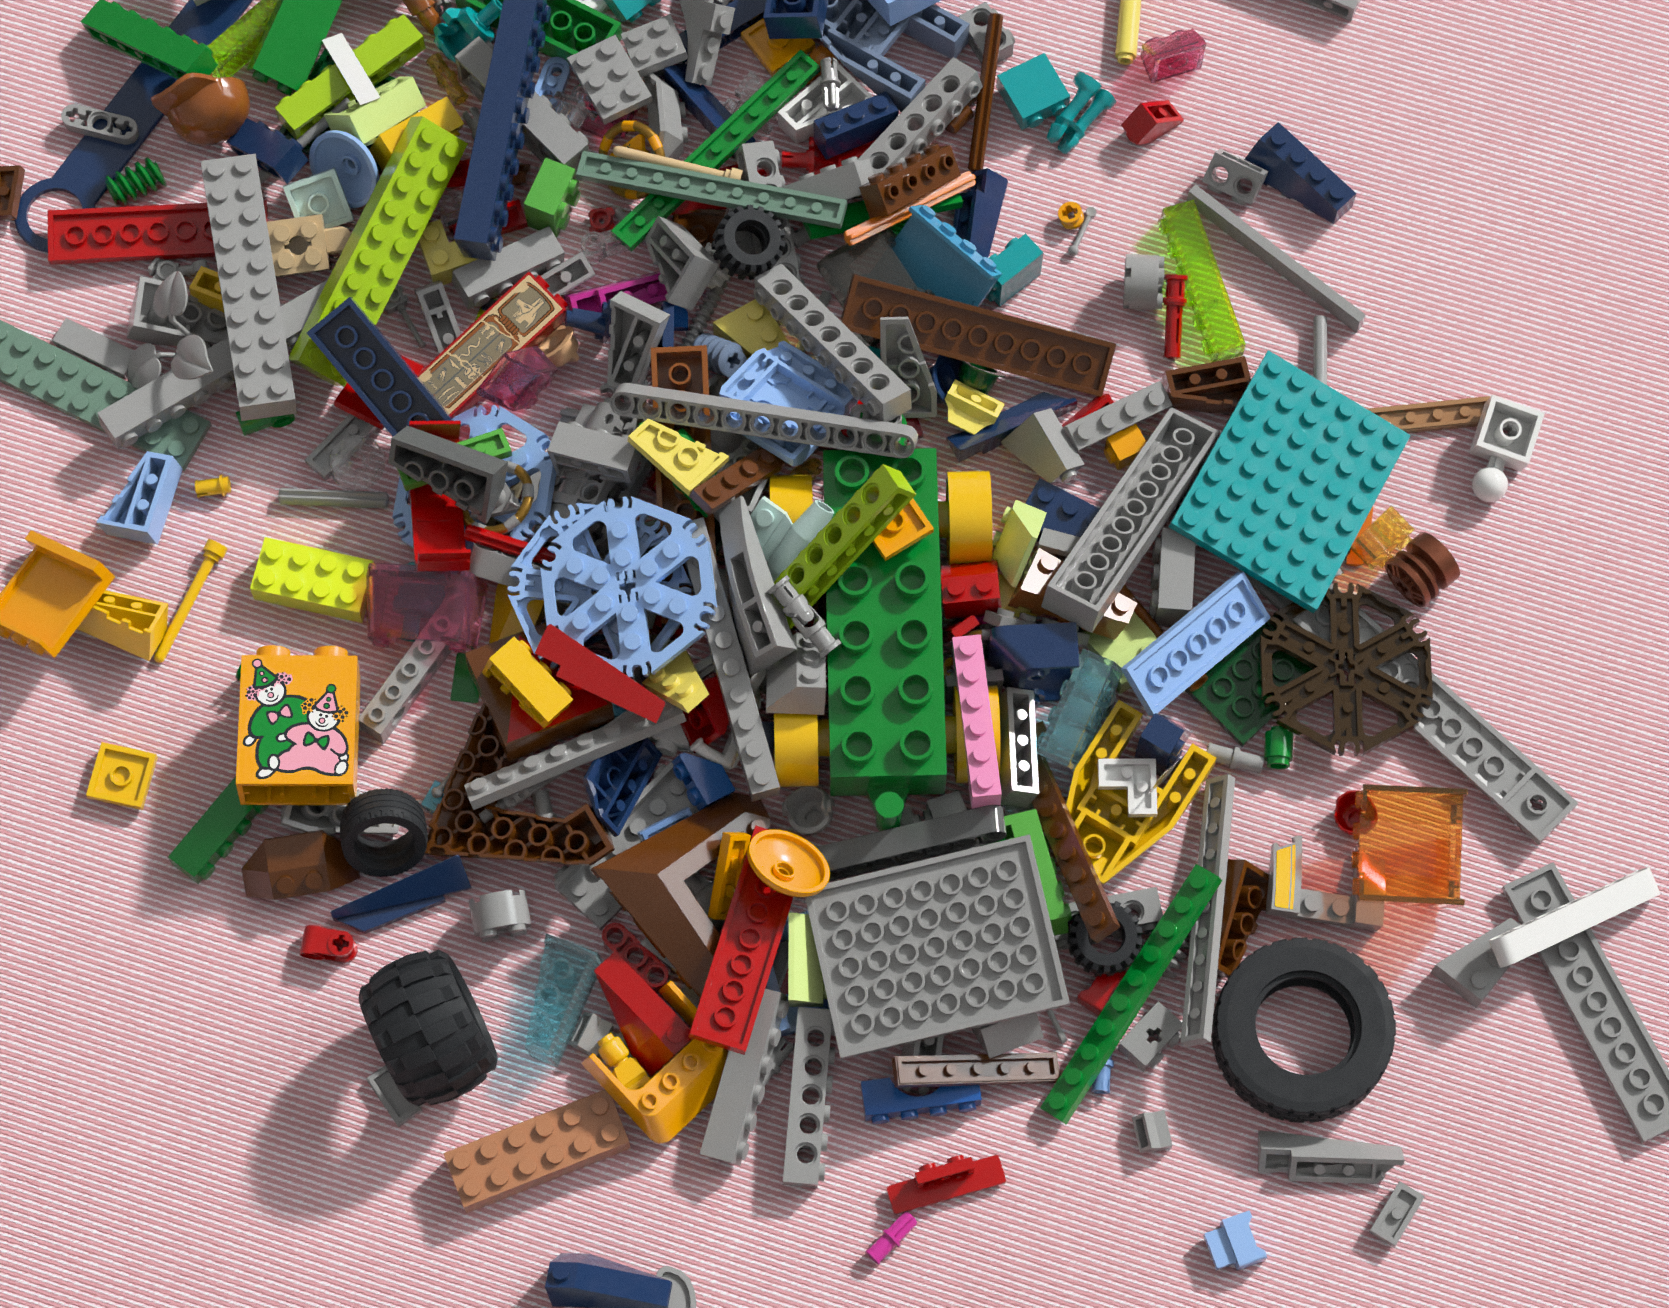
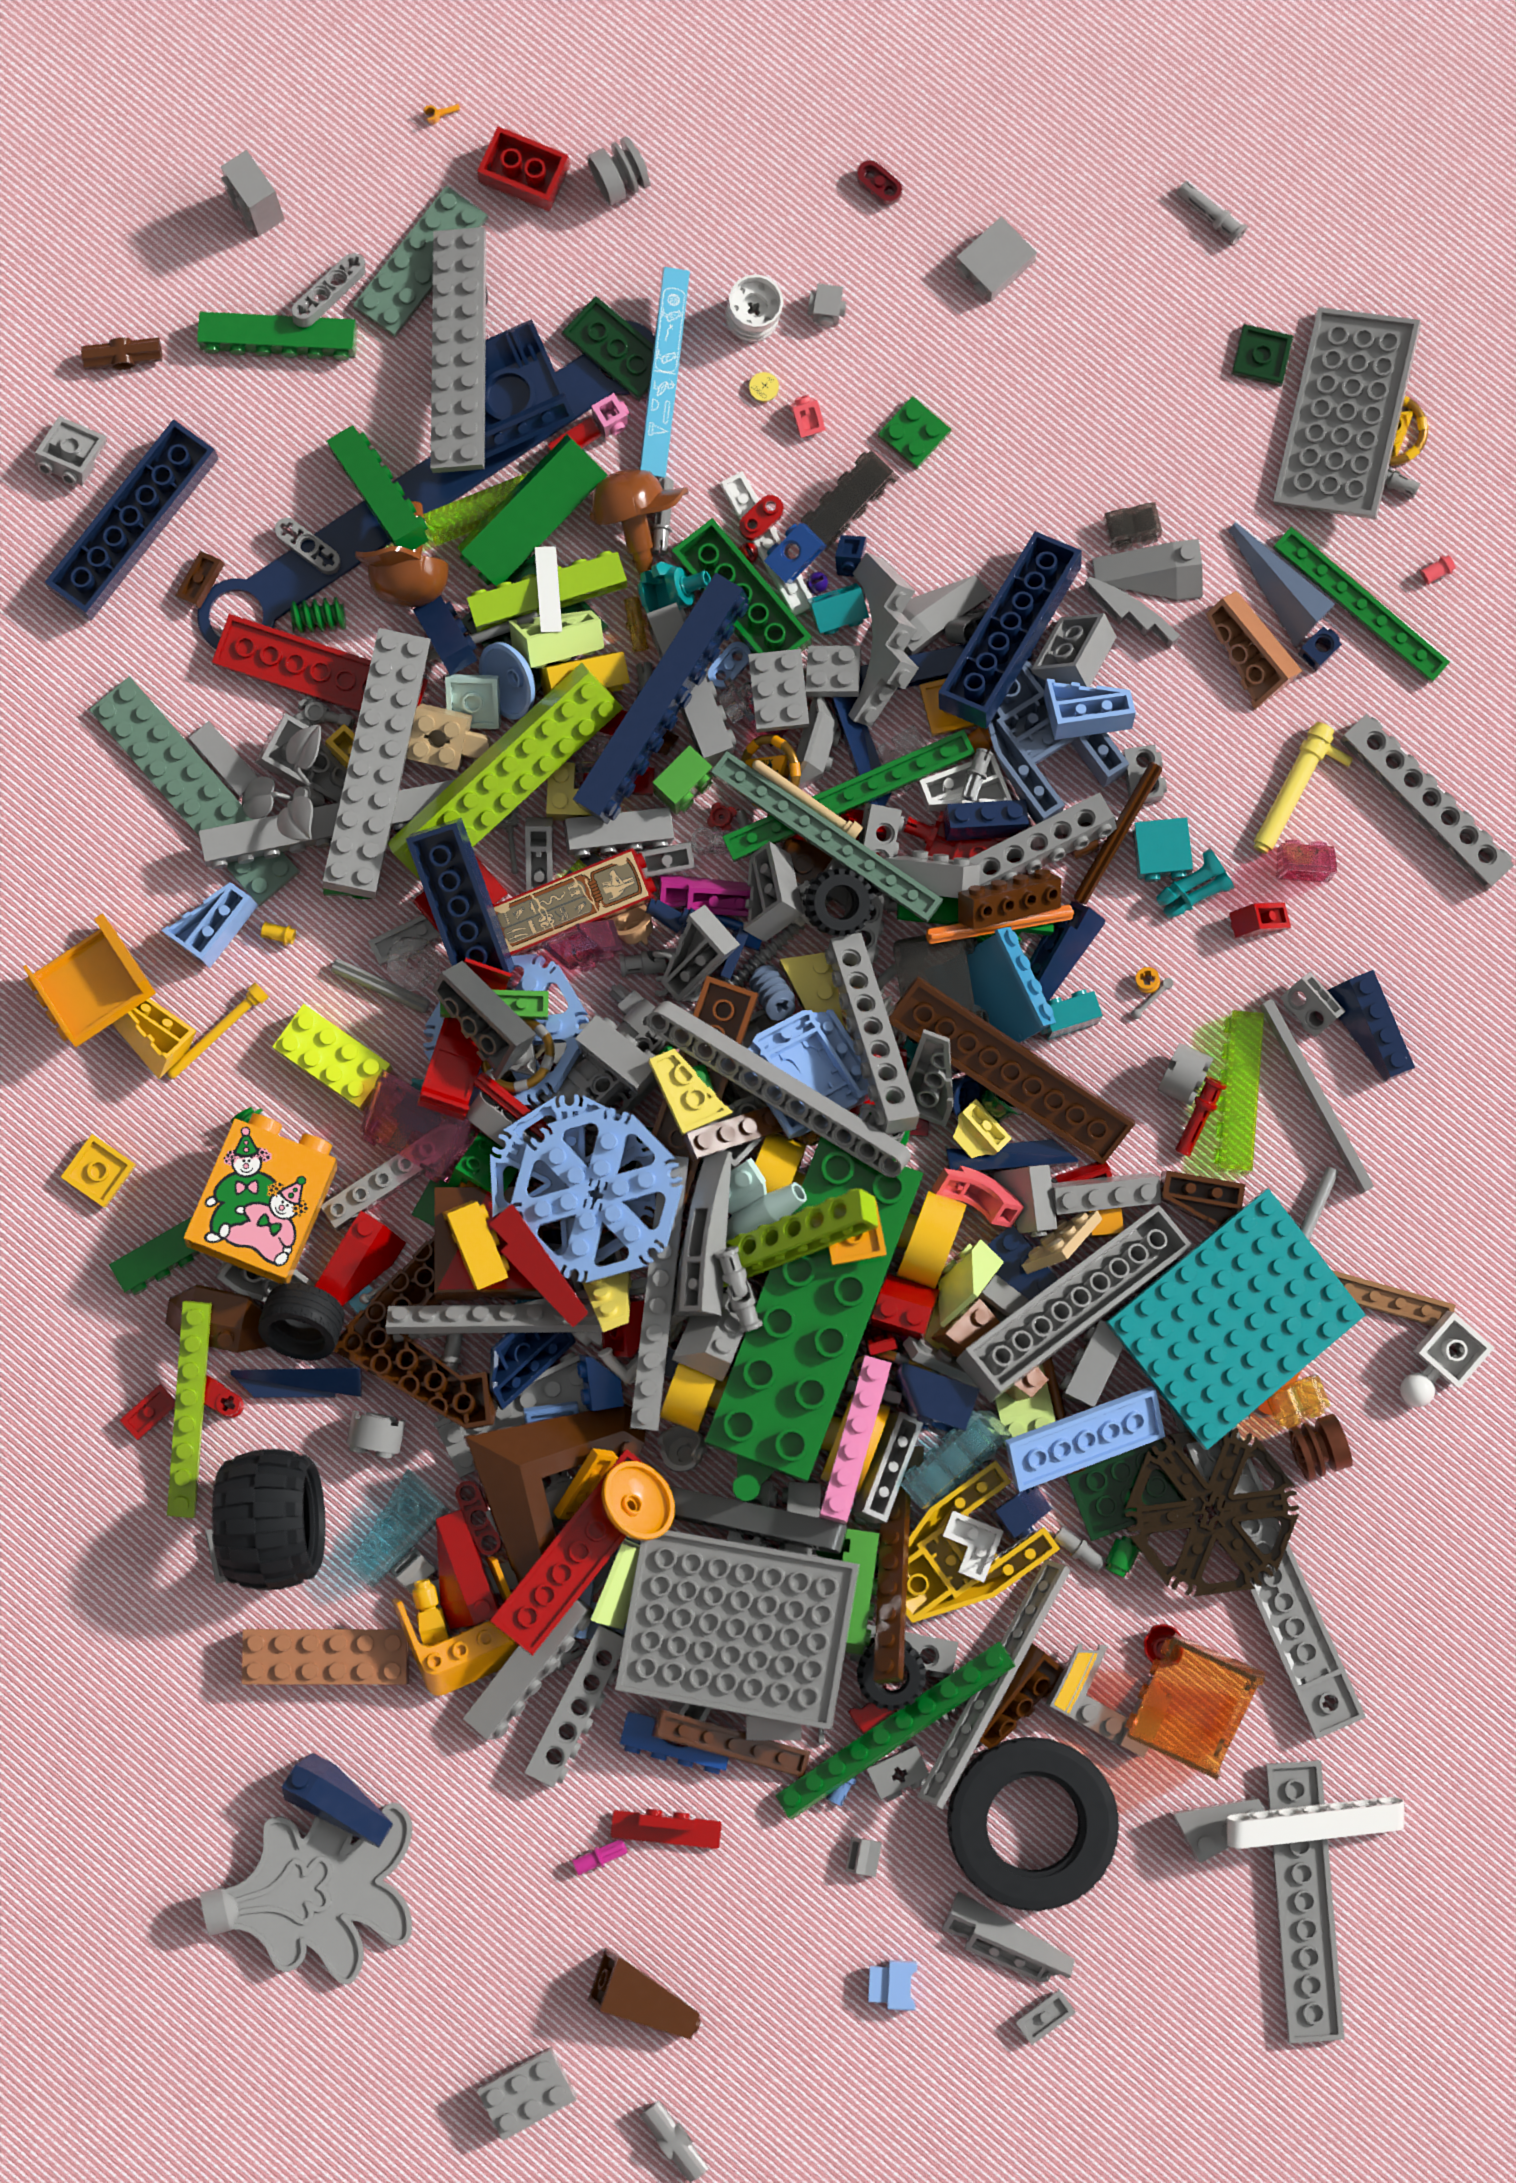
camera: 20 degrees right, 10 degrees up
(264, 986) = (149, 1412): none -> red plate
(304, 963) = (189, 1409): none -> lime plate
(418, 752) = (360, 1258): none -> red wedge
(500, 616) = (476, 1165): none -> green bracket
(584, 379) = (647, 962): none -> light grey piece
(998, 459) = (980, 1192): none -> coral arch
(1093, 471) = (1061, 1241): none -> tan plate

